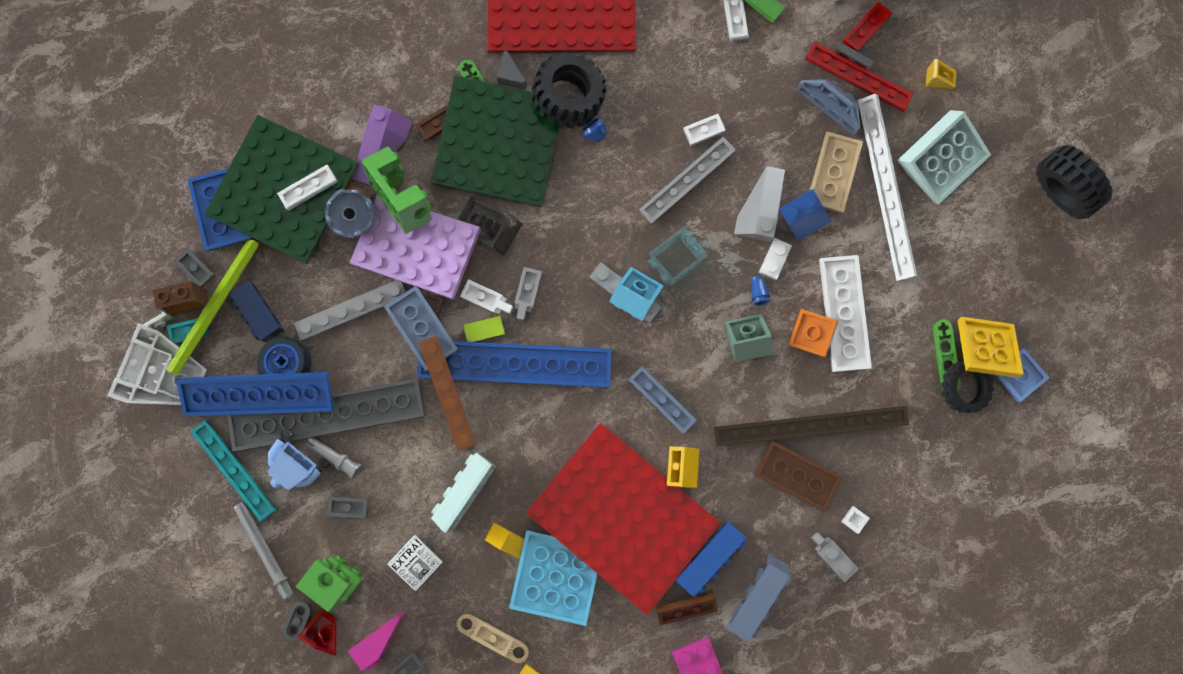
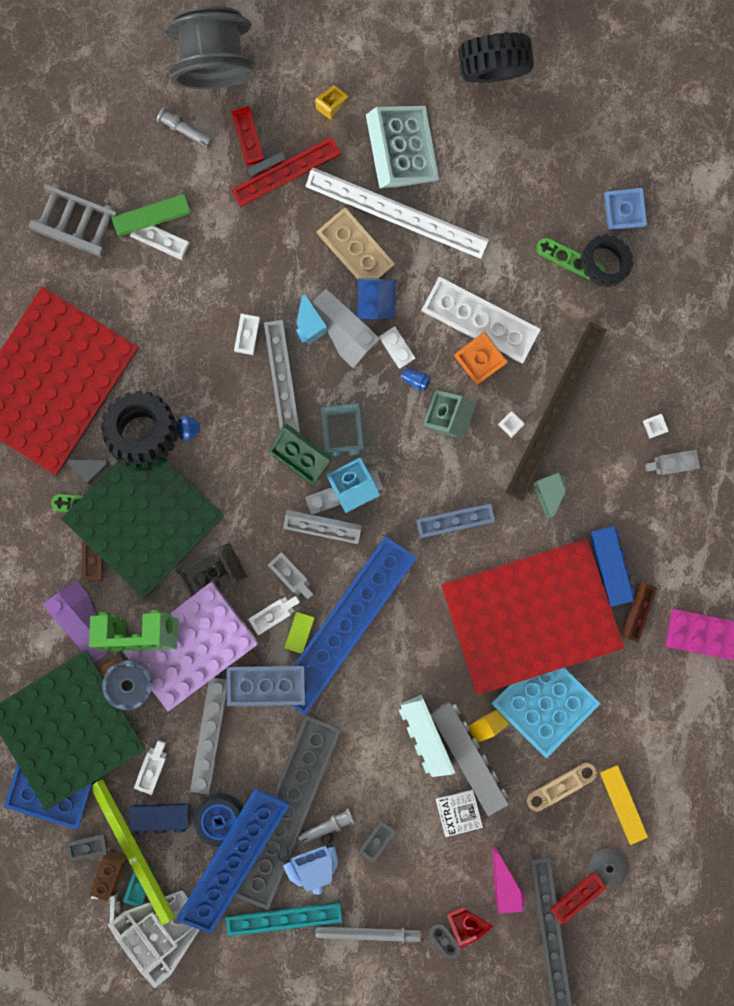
camera: 55 degrees left, 5 degrees up
(293, 279) = (151, 768): none -> white hinge
(307, 187) = (81, 707): white tile -> none
(329, 586) = (435, 897): bright green plate -> none
(447, 392) = (334, 698): dark orange plate -> none
(466, 542) = (469, 759): none -> light grey brick
(585, 292) = (322, 526): none -> light grey plate
(633, 234) = (299, 454): none -> dark green plate
(683, 467) = (522, 540): yellow brick -> none
(740, 463) = (550, 493): none -> sand green slope
(746, 173) = (309, 322): none -> medium azure slope
(760, 598) = (669, 546): sand blue wedge -> none
(774, 395) = (511, 424): none -> white tile
(798, 476) = (590, 449): reddish brown plate -> none
(833, 101) = (294, 208): sand blue wedge -> none
(990, 347) = (586, 220): yellow plate -> none

